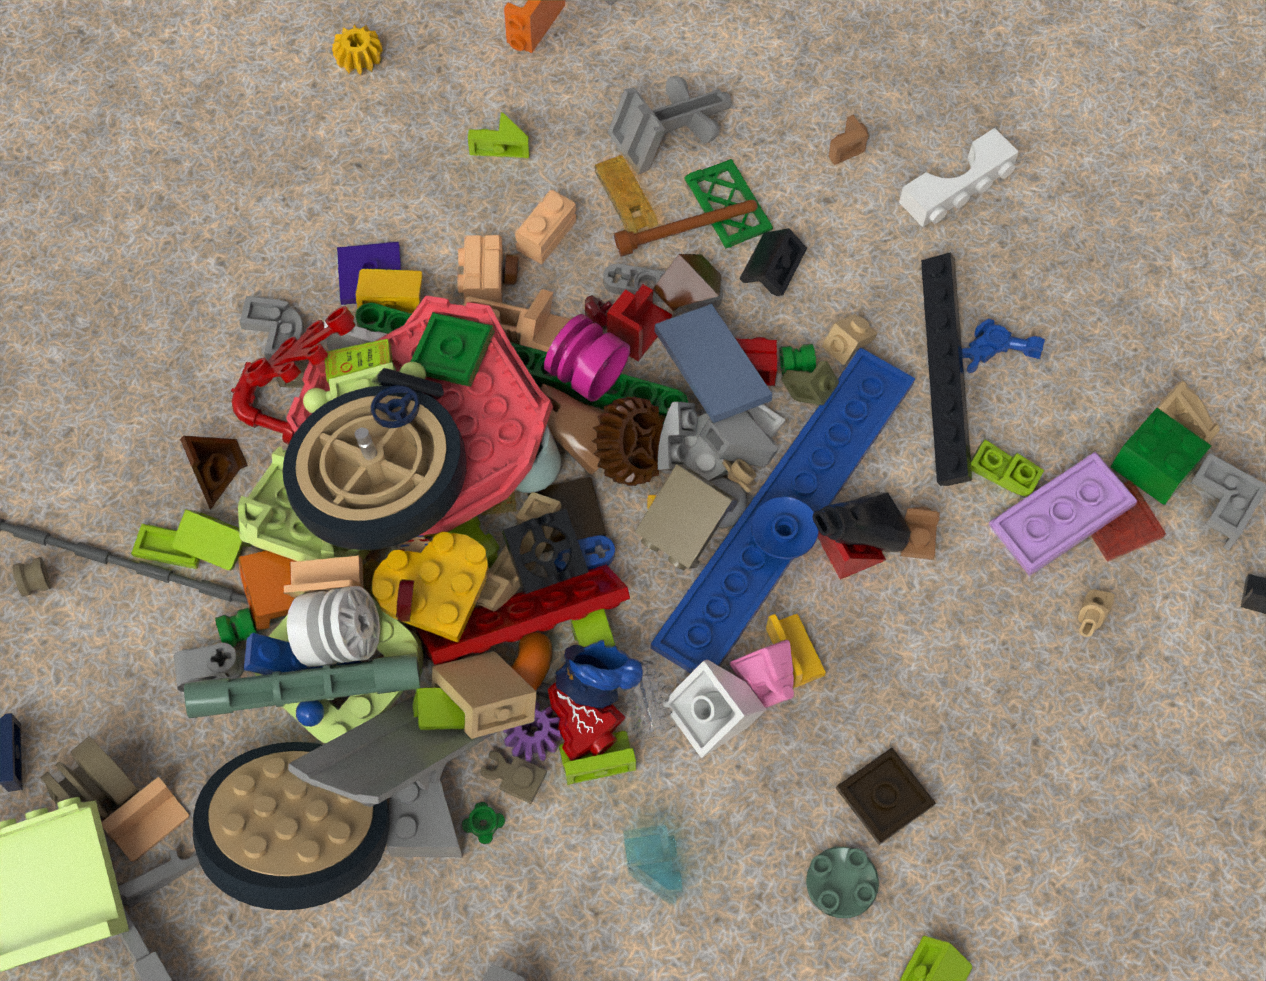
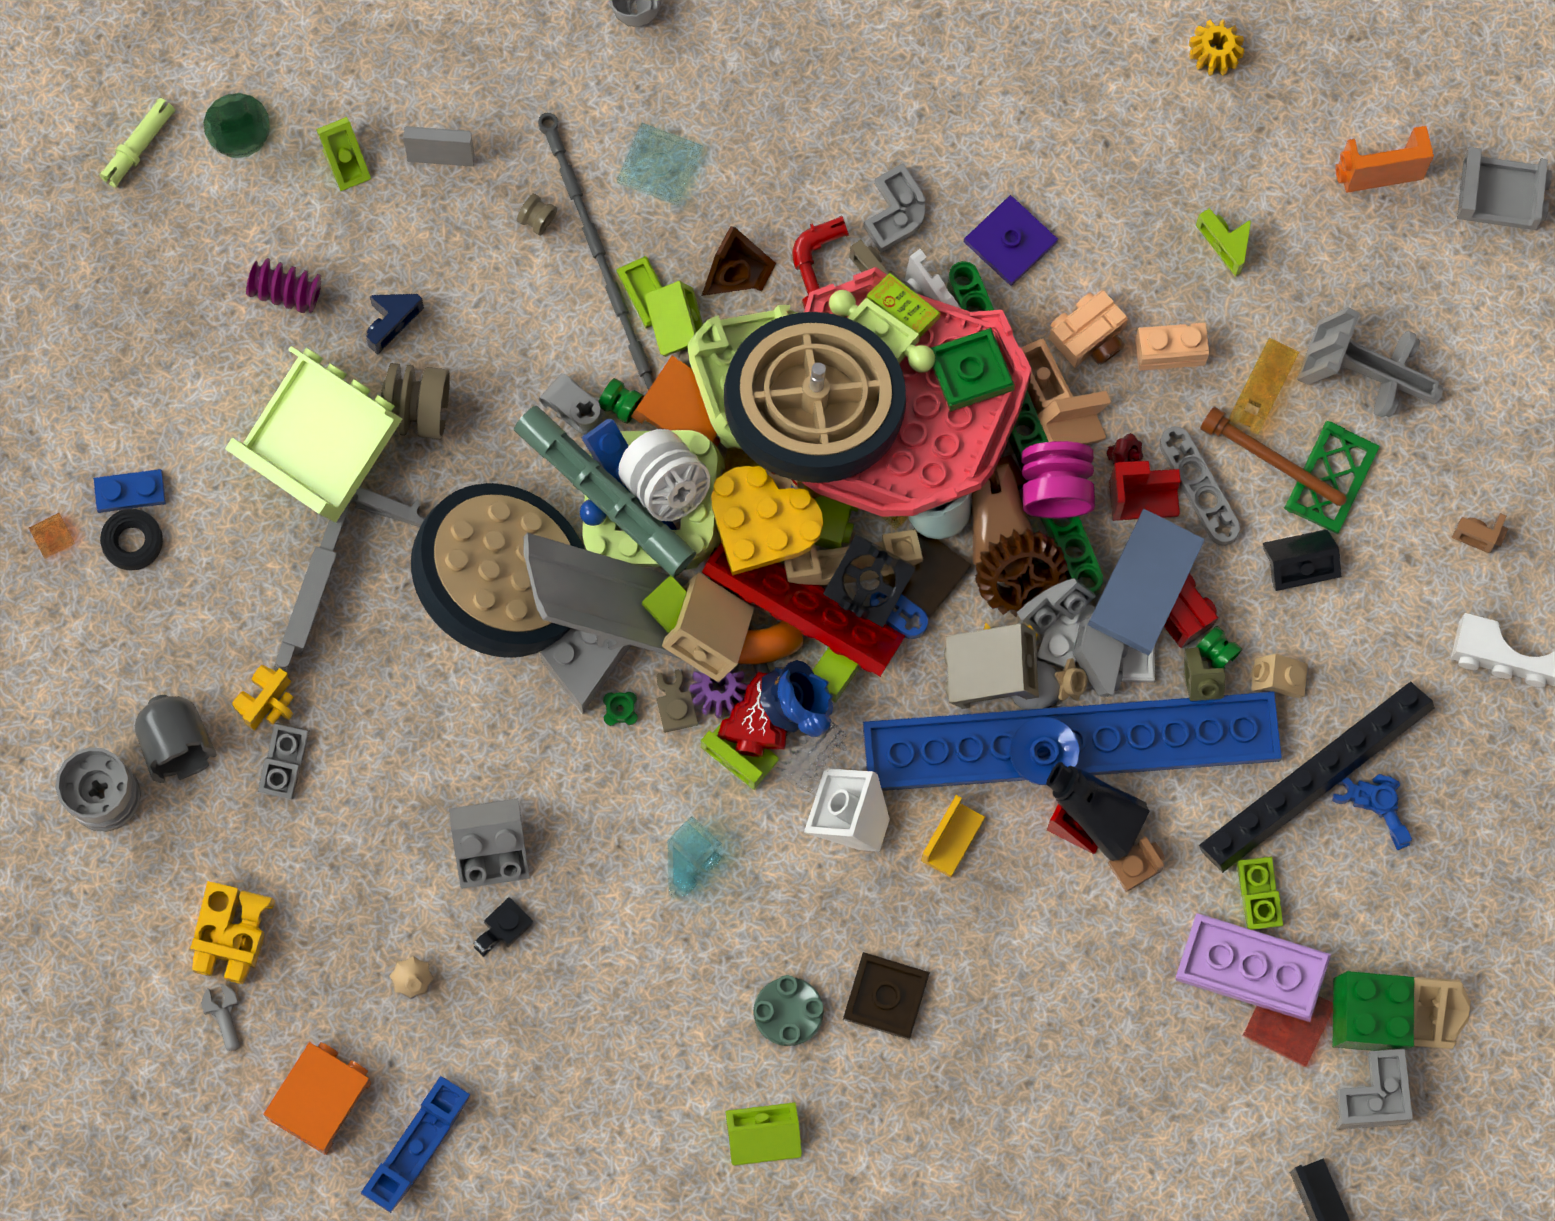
camera: 50 degrees right, 10 degrees up
(81, 461) = (659, 164): none -> clear light blue tile
(145, 819) = (425, 462): light nougat panel -> none
(292, 350) = (841, 238): red plant -> none
(324, 575) = (700, 435): light nougat panel -> none
(389, 377) = (905, 364): black tile -> none
(390, 288) = (1003, 272): yellow panel -> none
(401, 416) = (872, 367): dark blue piece -> none
(404, 600) = (726, 509): dark red tile -> none
(688, 281) = (1216, 506): slope -> none
(768, 673) = (909, 829): bright pink piece -> none
(1094, 611) = (1179, 1056): tan piece -> none

